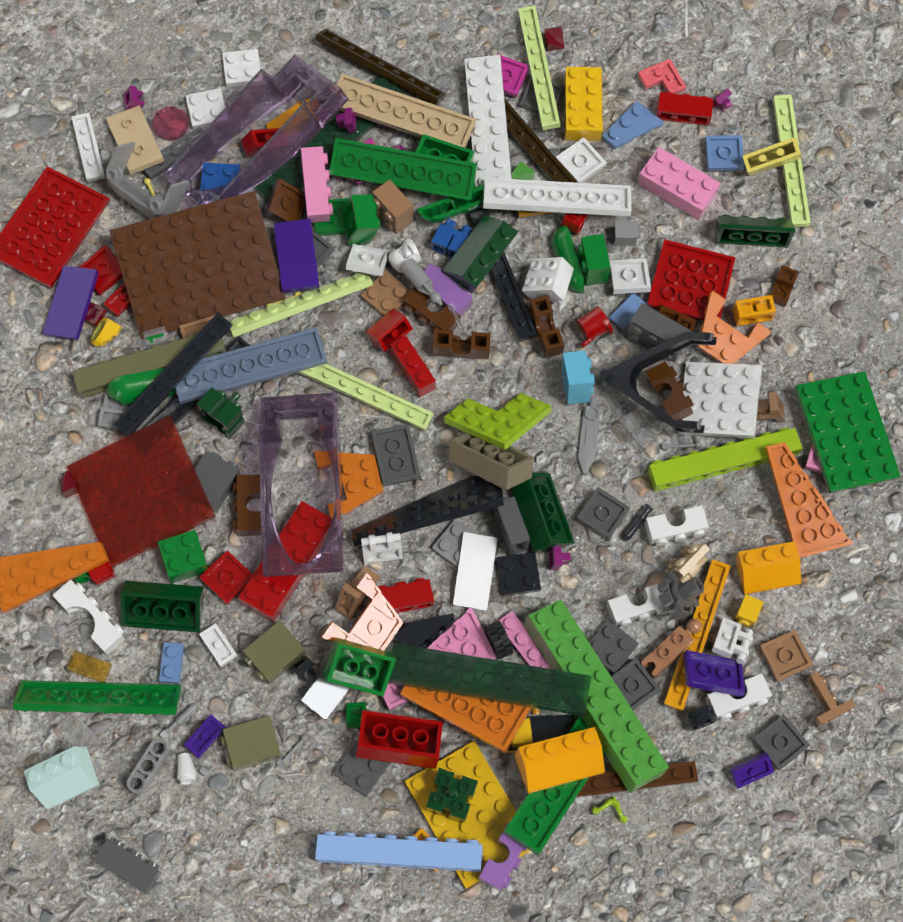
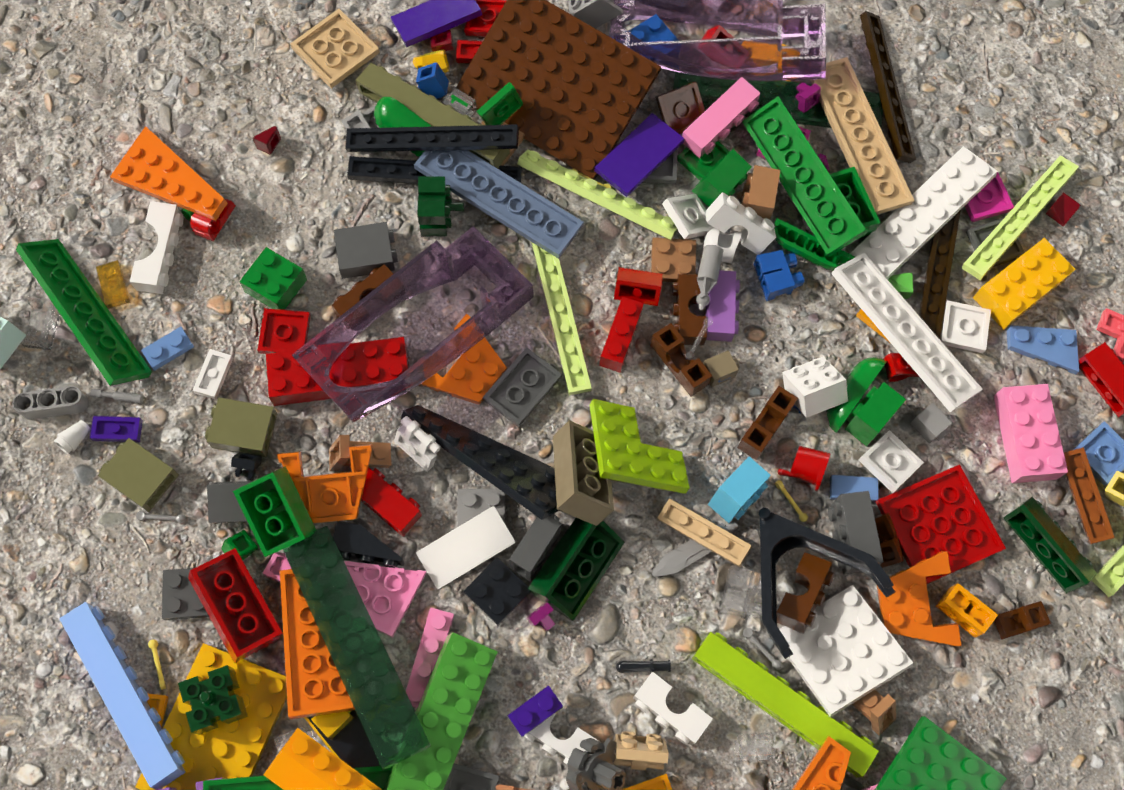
camera: 50 degrees right, 0 degrees up
(34, 388) = (335, 48): none -> tan plate
(123, 343) = (432, 80): none -> blue brick
(141, 491) = (307, 200): clear red plate -> none
(162, 606) = (213, 298): dark green slope -> none
(189, 313) = (500, 106): none -> green tile
(378, 815) = (153, 644): none -> light yellow hinge
(390, 234) = (728, 212): none -> white arch
(480, 252) = (785, 305): dark green slope -> none
(487, 323) = (722, 367): none -> dark tan brick
(498, 640) = (409, 623): black tyre -> none
(509, 289) = (784, 345): black plate -> none
(584, 420) = (704, 532): none -> tan plate
(603, 513) = (625, 625): dark grey plate -> none
(612, 646) = (492, 742): dark grey plate -> none
(616, 604) = (535, 711): none -> dark purple plate
(621, 356) = (802, 516): none -> light yellow hinge
(743, 185) = (1087, 497): none -> dark orange plate

